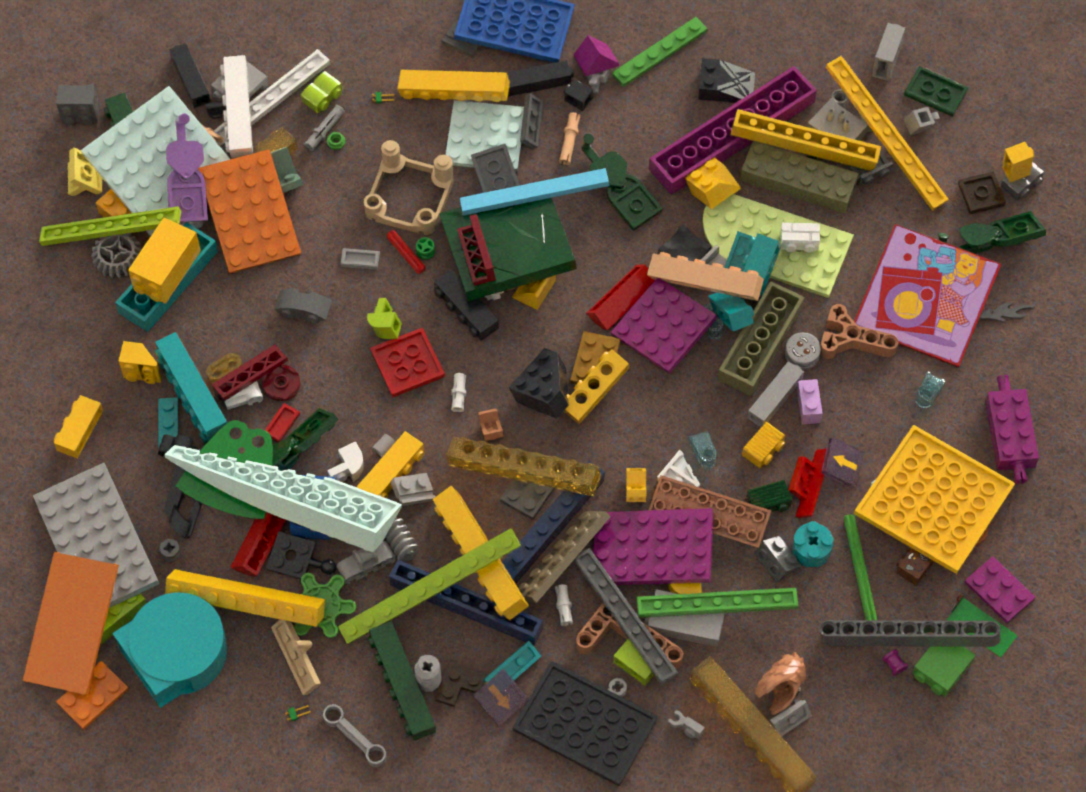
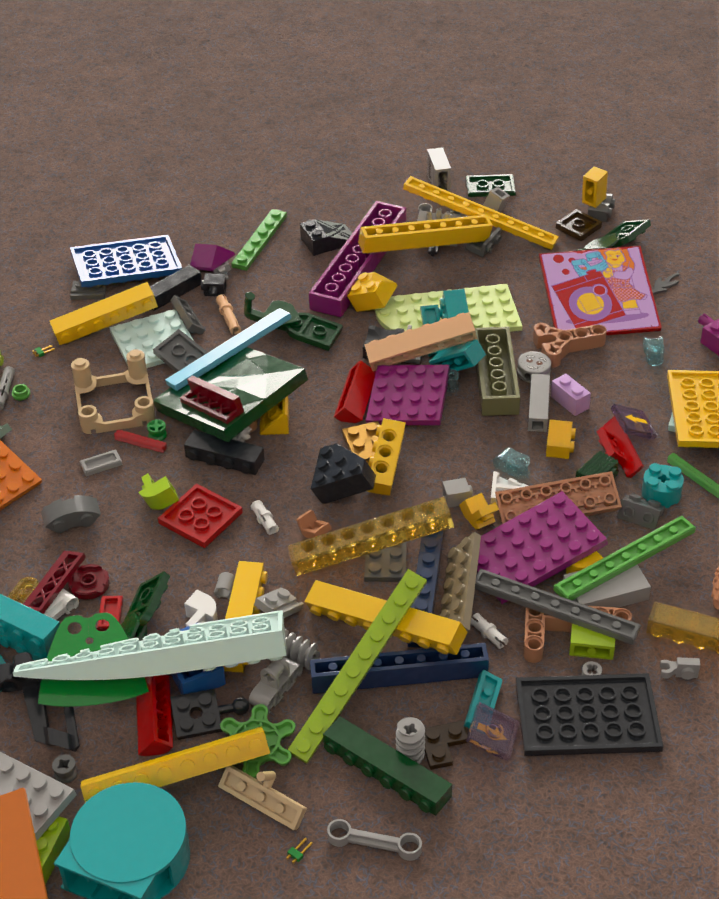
camera: 30 degrees left, 20 degrees down
(632, 454) = (456, 491): none -> light grey brick
(799, 177) = (436, 265): olive brick -> none
(800, 237) = (476, 293): white brick -> none

